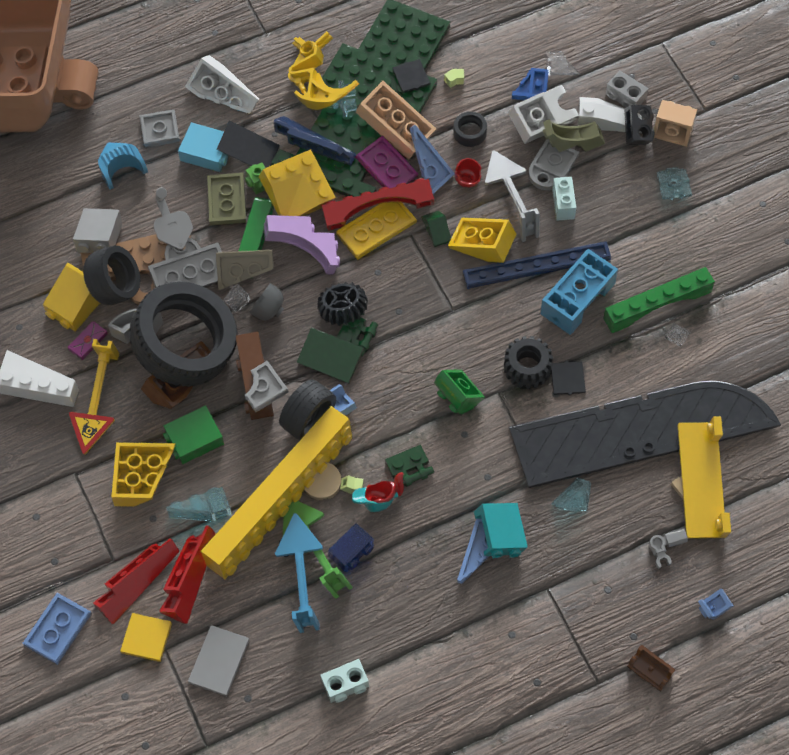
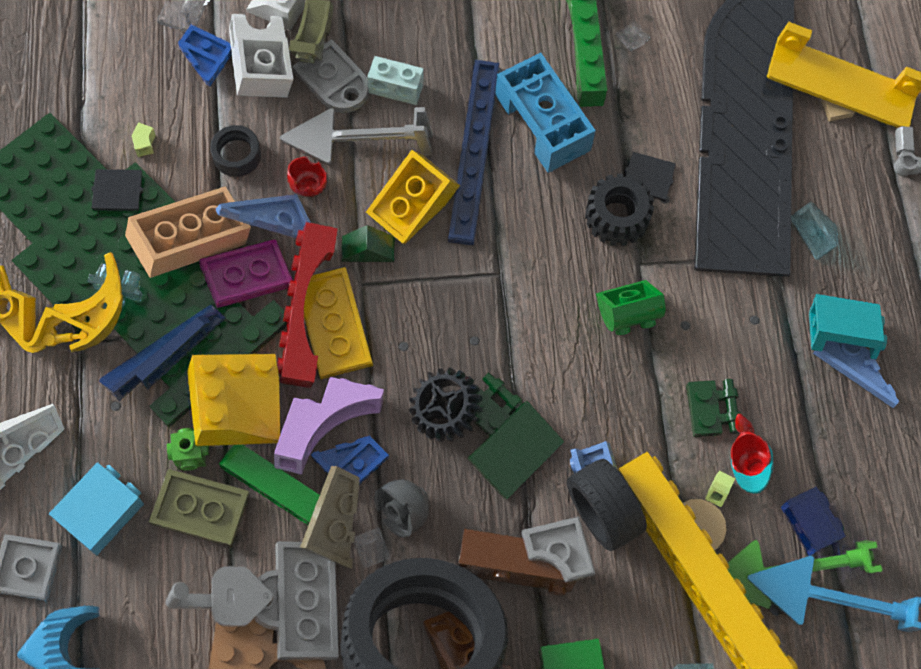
camera: 75 degrees left, 5 degrees up
(247, 145) = (126, 448): black piece -> none
(287, 268) = (357, 457): none -> blue wing

